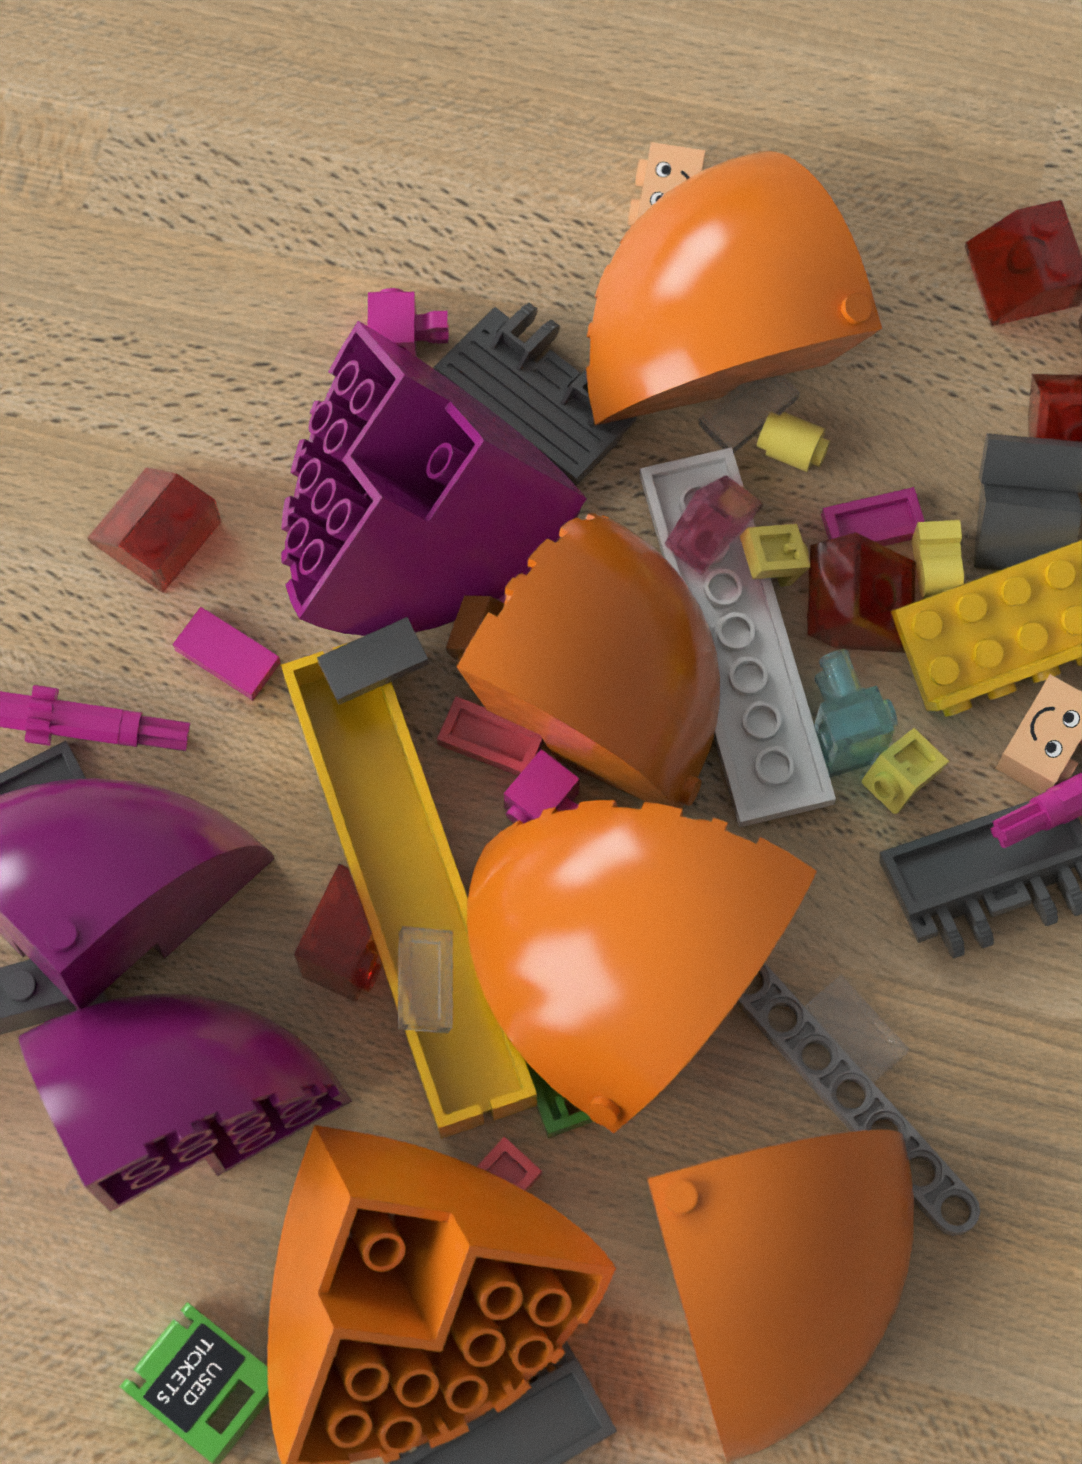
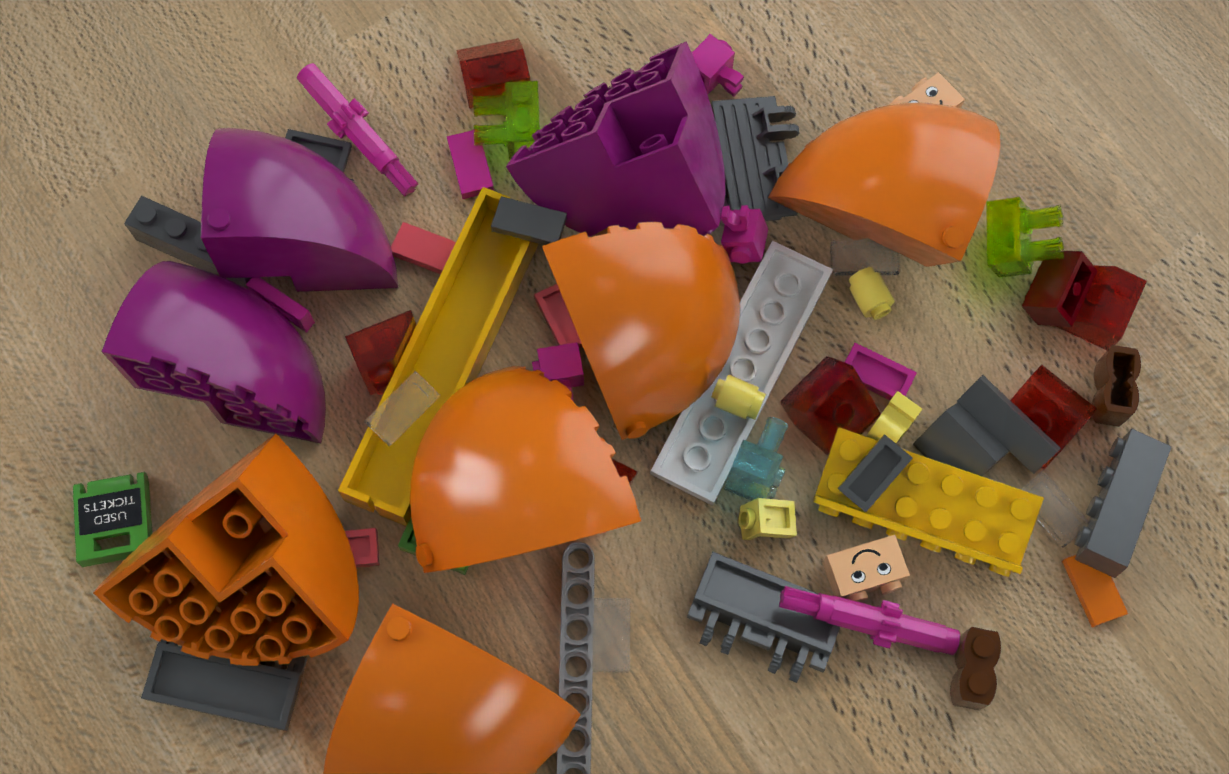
camera: 40 degrees right, 0 degrees up
(190, 980) = (285, 305): none -> dark pink tile
(239, 550) = (522, 112): none -> clear neon green brick
(269, 788) = (422, 248): none -> coral tile
(608, 485) = (744, 234): none -> dark pink brick
(712, 522) = (783, 298): clear pink slope -> none
(765, 665) = (738, 397): none -> light yellow brick
(775, 552) = (802, 343): light yellow bracket -> none
(895, 274) = (1009, 236): none -> clear neon green brick
(975, 627) = (875, 473): none -> dark grey tile
(979, 278) = (1059, 289): none -> dark red brick

